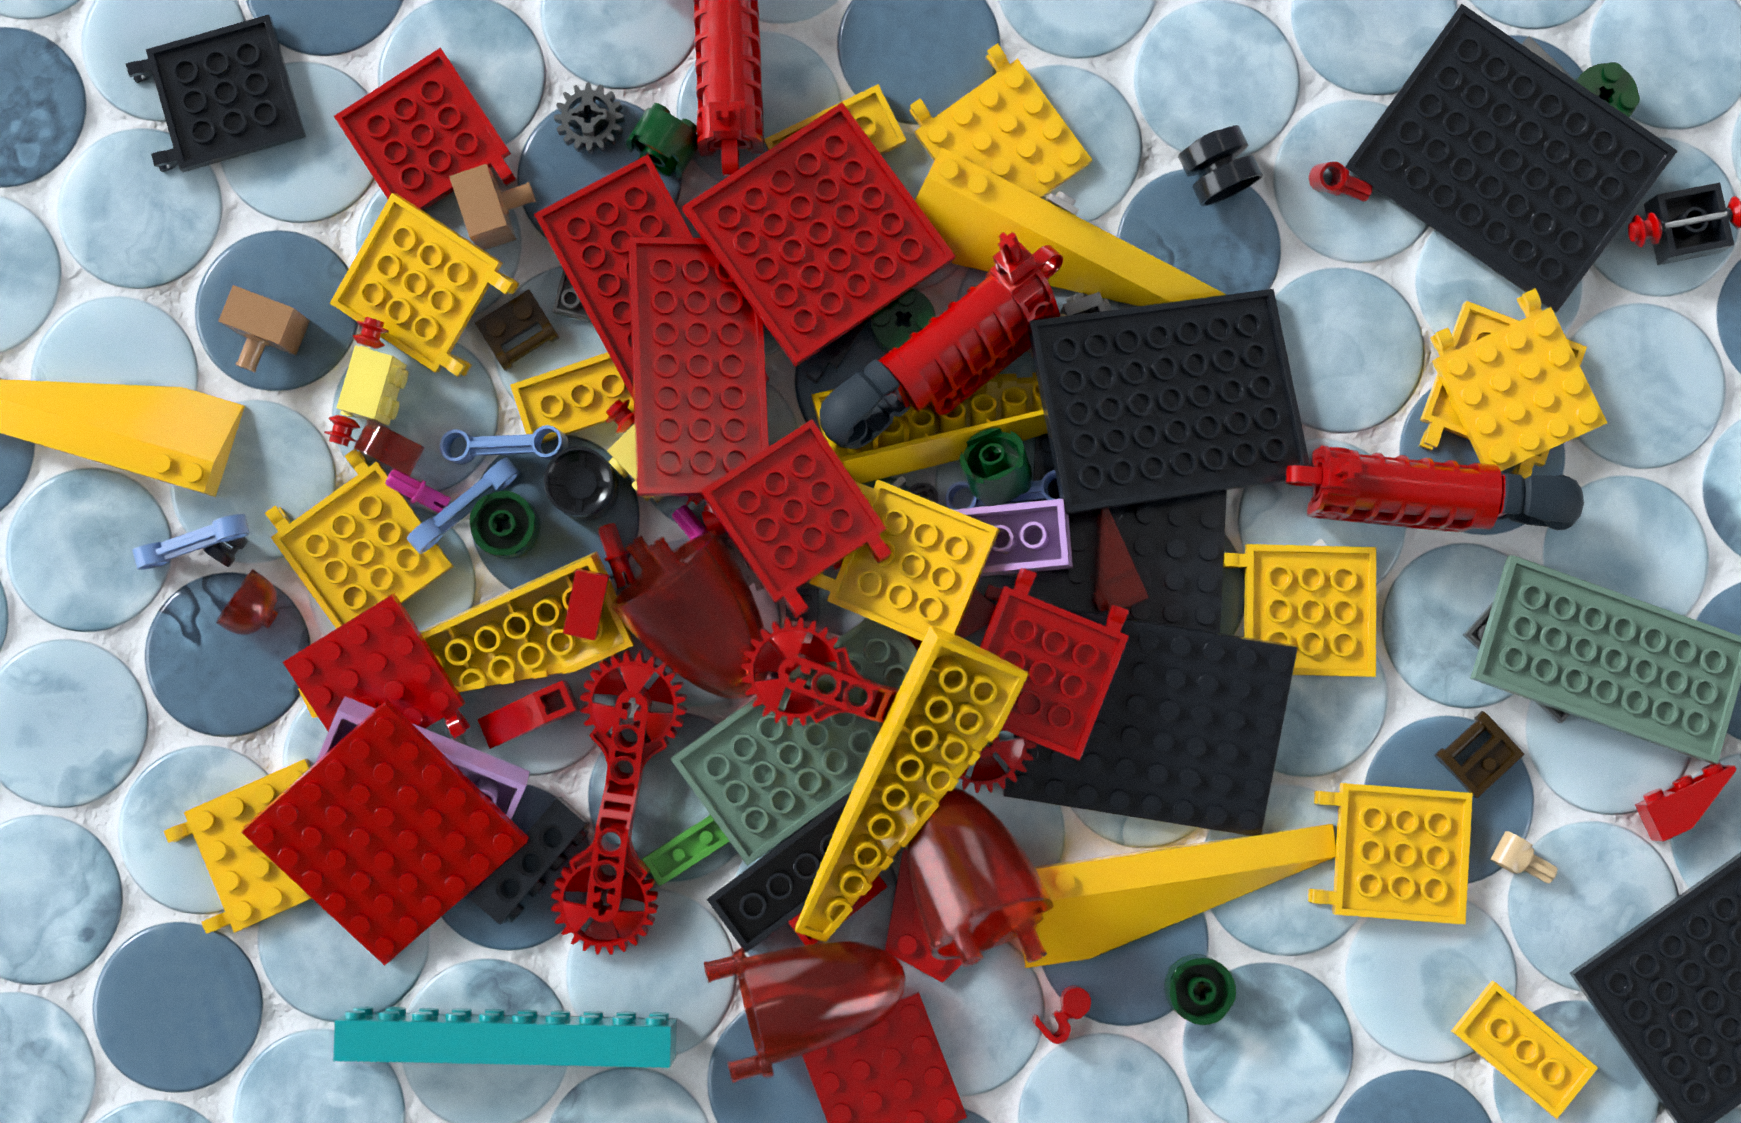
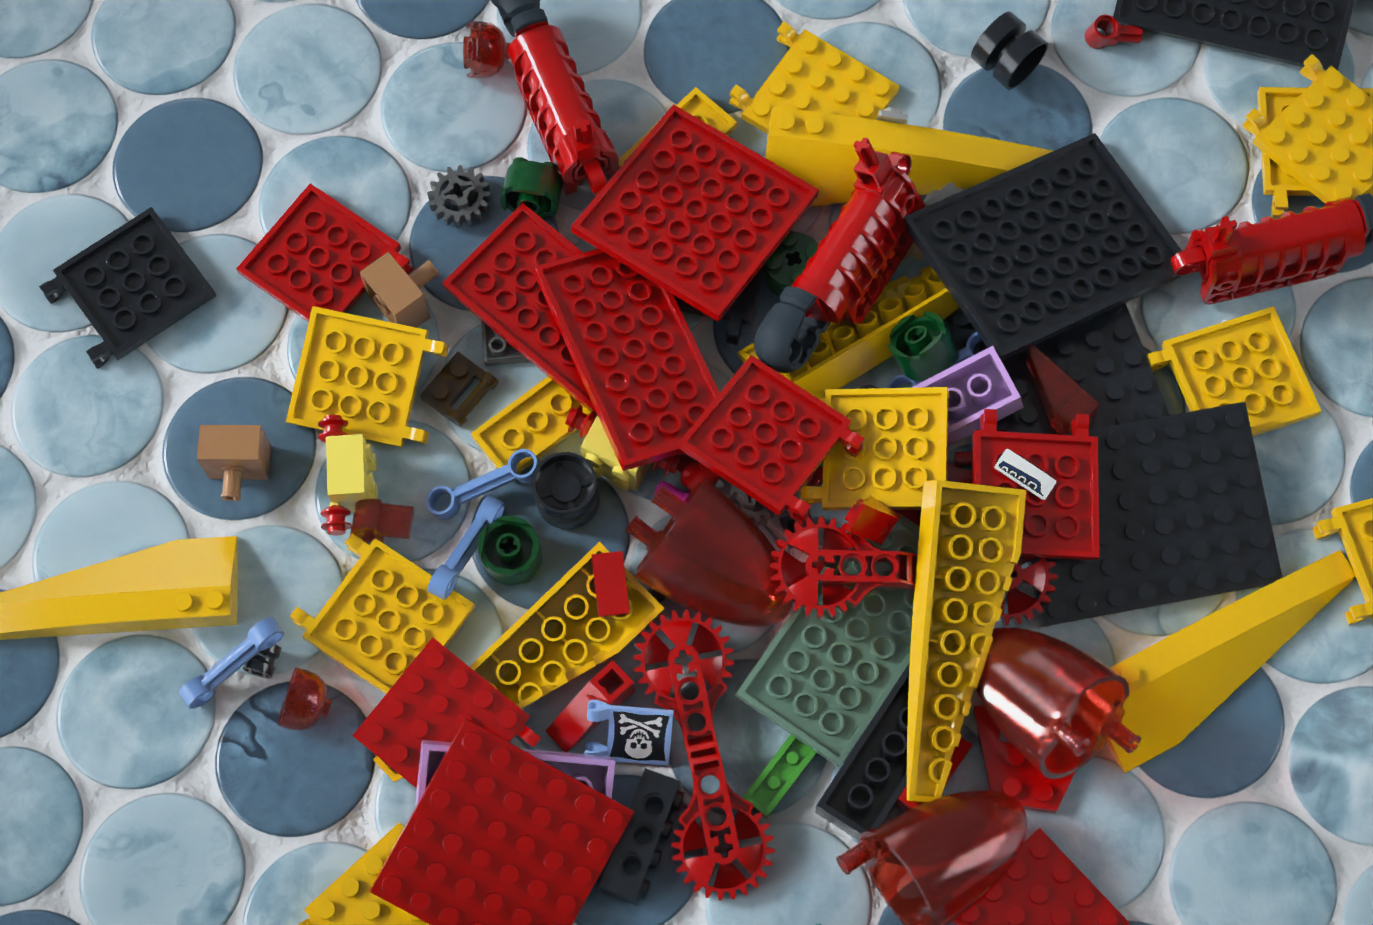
camera: 15 degrees left, 15 degrees down
(417, 491) = (419, 550): dark pink axle -> none
(555, 757) = (633, 733): none -> flag
(616, 554) = (617, 542): red axle -> none
(863, 641) = (871, 519): none -> red slope
(1038, 650) = (1025, 474): none -> white sticker
(1074, 1004) = (1181, 787): red leg -> none
(1215, 999) = (1289, 746): dark green brick -> none

